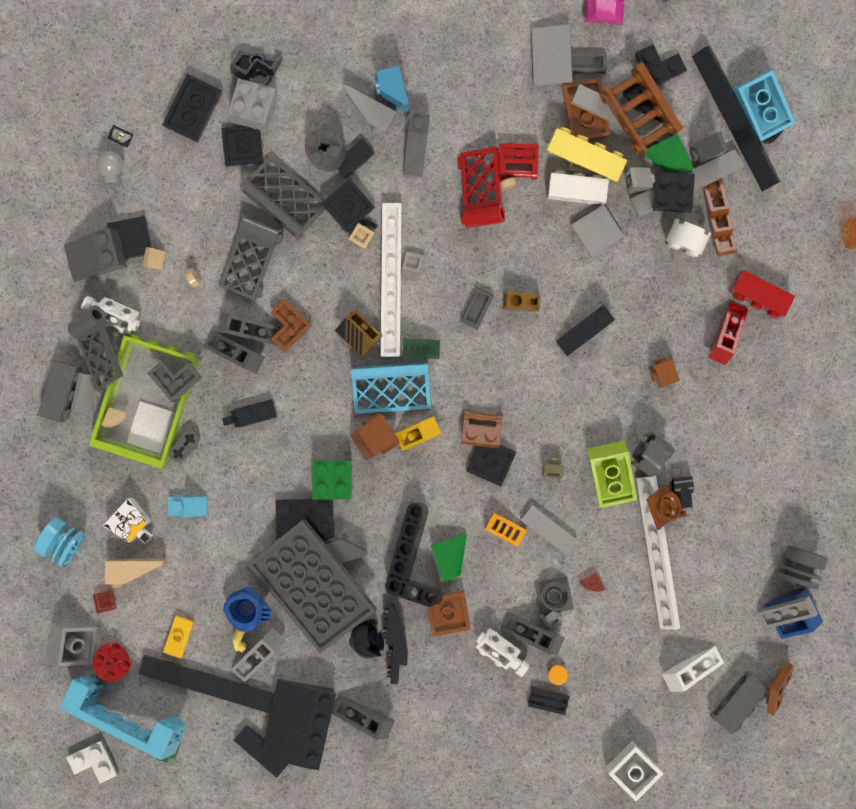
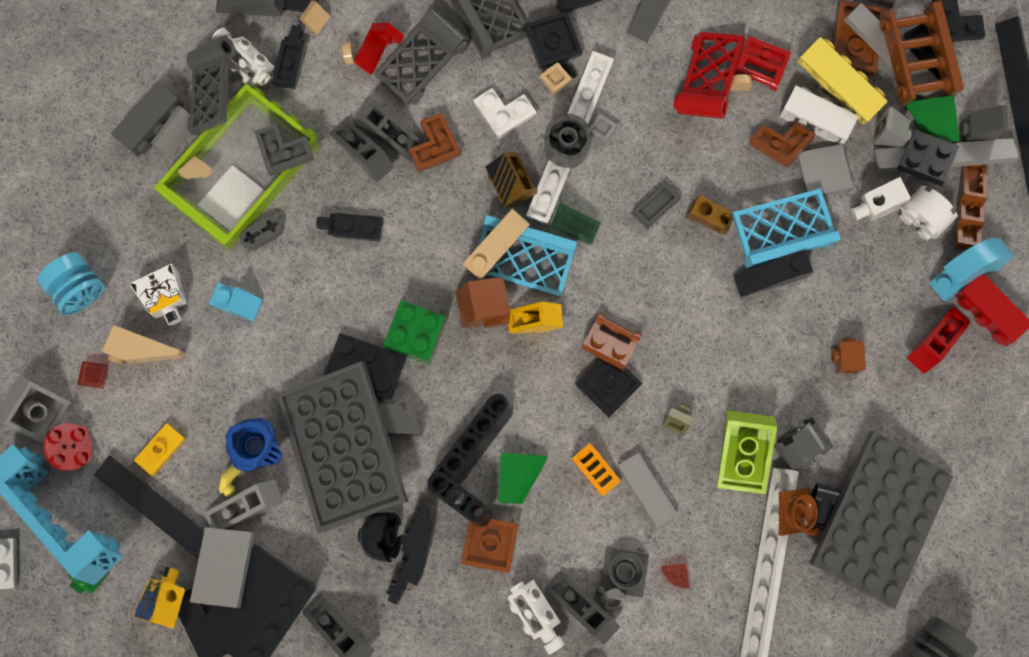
camera: 20 degrees right, 10 degrees down
(148, 300) = (289, 59): none -> black hinge
(209, 264) = (374, 44): none -> red bracket
(227, 745) = (161, 600): none -> yellow torso
(261, 705) = (222, 567): none -> light grey tile
(333, 283) = (504, 118): none -> white plate
(367, 391) = (496, 244): none -> tan slope
(384, 279) = (558, 132): none -> dark grey brick
(559, 226) = (782, 148): none -> dark orange plate
(592, 304) = (774, 251): none -> medium azure fence
(655, 235) = (889, 197): none -> white torso
(728, 487) = (881, 519): none -> dark grey plate
(734, 267) = (977, 260): none -> medium azure arch

